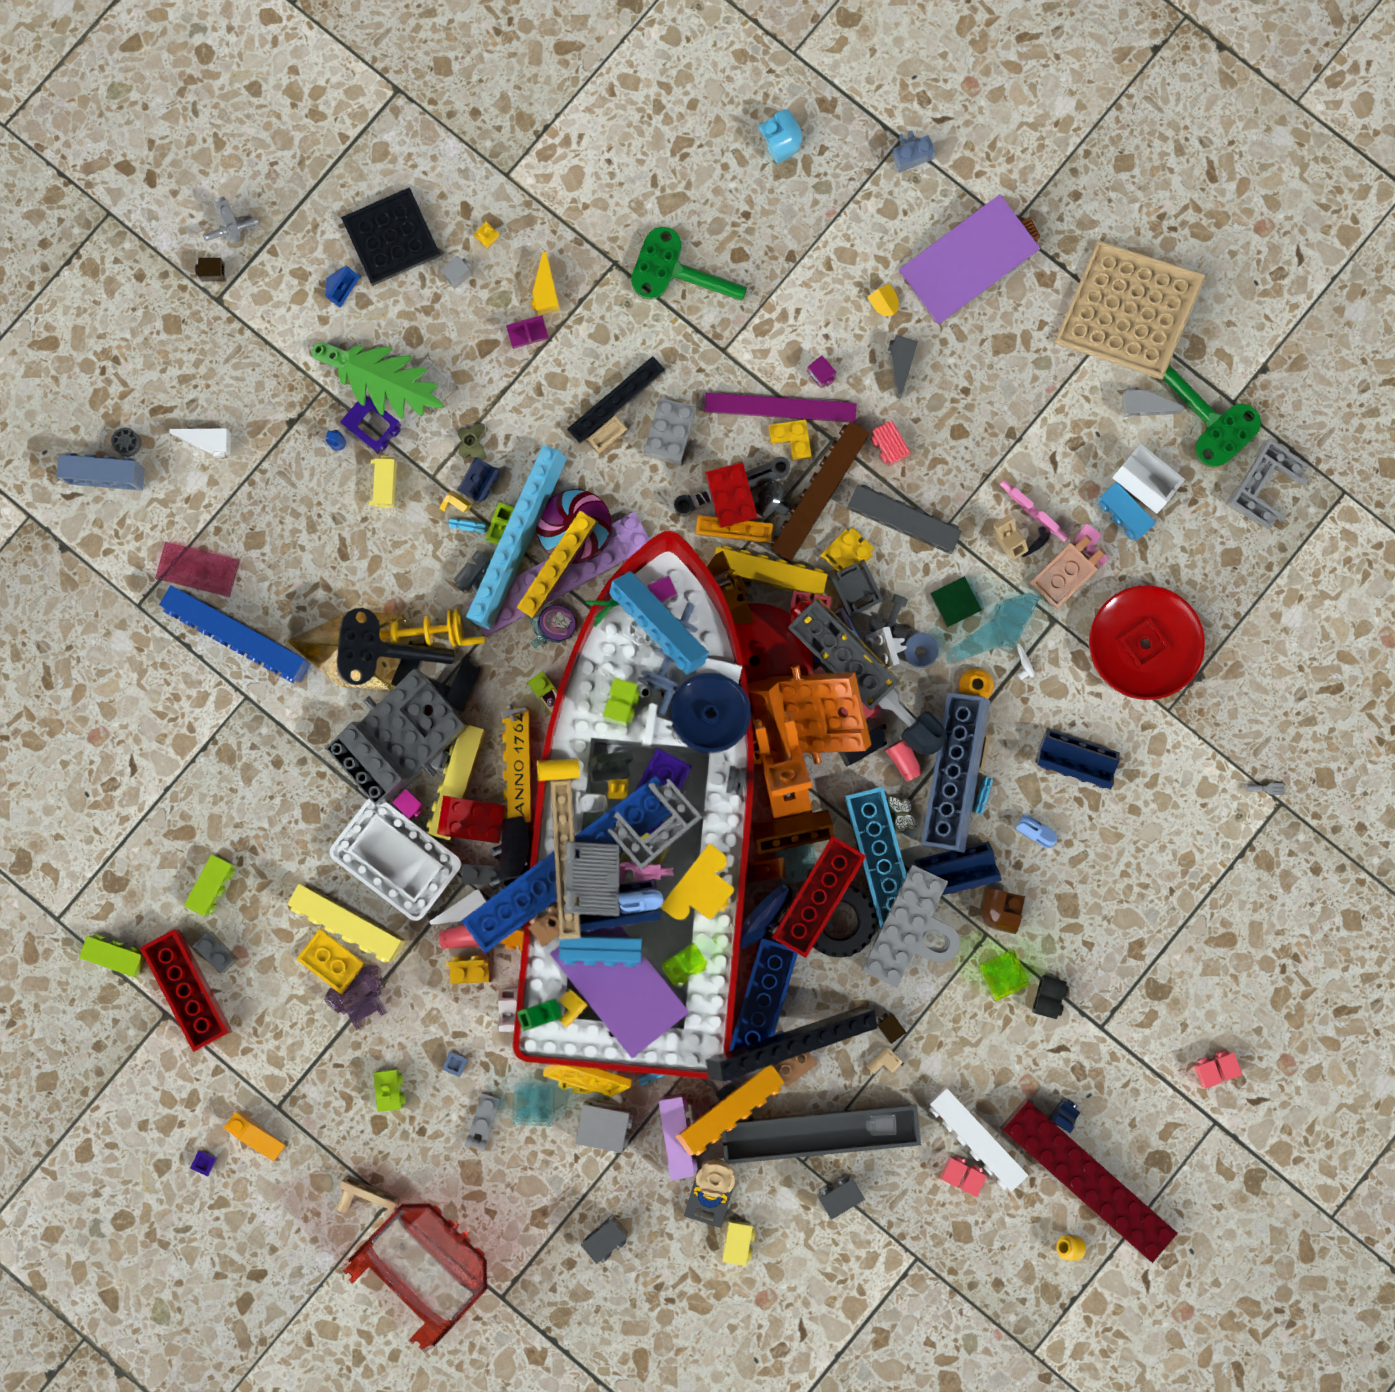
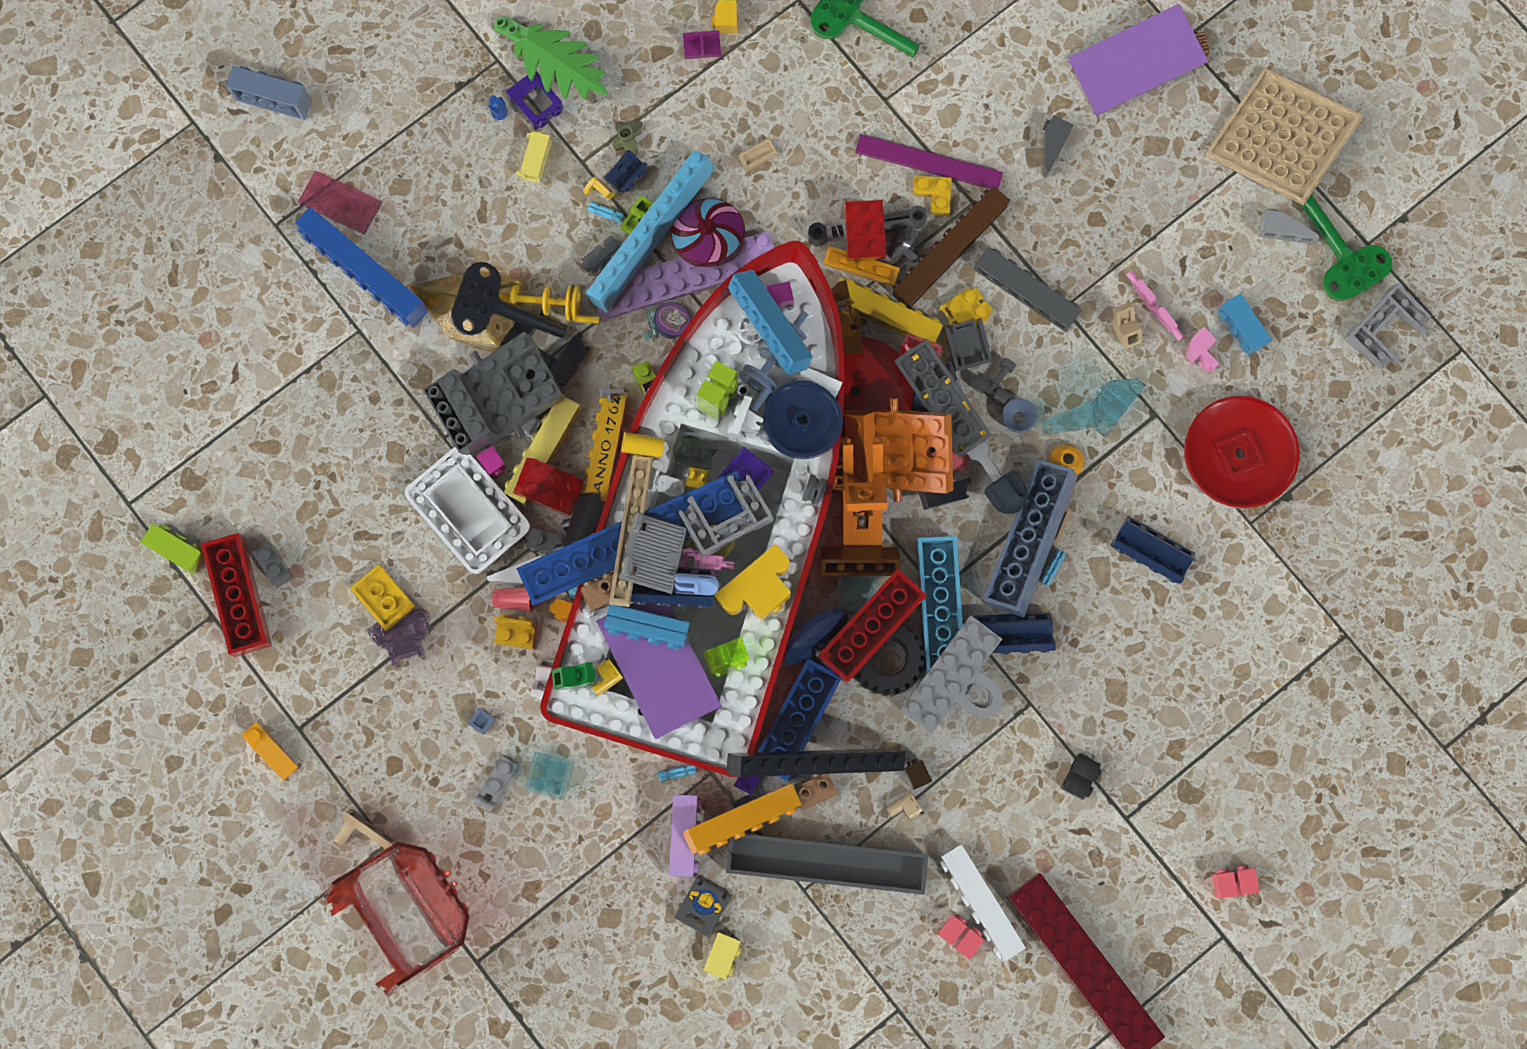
camera: 10 degrees right, 5 degrees down
(126, 442) = (300, 70): dark grey wheel -> none
(203, 1163) = (214, 767): dark purple plate -> none
(210, 885) = (283, 500): lime brick -> none
(212, 441) = (378, 85): white slope -> none
(346, 922) = (402, 558): light yellow brick -> none
(388, 1090) = (411, 733): lime brick -> none
(557, 564) = (684, 261): yellow brick -> none
(587, 1080) = (606, 759): yellow plate -> none
(602, 1241) = (591, 923): dark grey piece -> none
(604, 1126) = (614, 810): light grey brick -> none
(609, 605) = (724, 299): green plant -> none
(616, 400) = (773, 124): black plate -> none
(670, 431) = (818, 162): light grey piece -> none
(715, 1177) = (713, 884): tan tile -> none
(765, 870) = (823, 593): dark orange plate -> none
(822, 372) = (975, 136): magenta brick -> none
(840, 1196) = (834, 929): dark grey piece -> none
(881, 1124) = (889, 866): clear brick -> none
(885, 300) = (1048, 82): yellow brick -> none
(885, 646) = (985, 402): white plate -> none
(890, 443) = (1027, 215): coral brick -> none
(901, 813) = (969, 570): olive animal -> none
(904, 759) = (982, 516): coral plant -> none
(955, 602) = (1062, 377): dark green tile -> none
(1001, 910) = (1050, 681): reddish brown brick -> none
(1003, 975) = (1039, 744): clear neon green brick -> none
(1028, 670) = (1120, 457): white bar -> none
(1036, 831) = (1099, 612): light blue arm -> none
(1041, 541) = (1158, 335): black bar -> none
(1065, 1115) = (1074, 896): dark blue arch -> none
(1067, 572) = (1176, 369): nougat tile -> none
(1071, 1247) = (1055, 1030): yellow head -> none
(1148, 478) = (1272, 296): white piece -> none
(1271, 788) = (1339, 619): light grey piece -> none

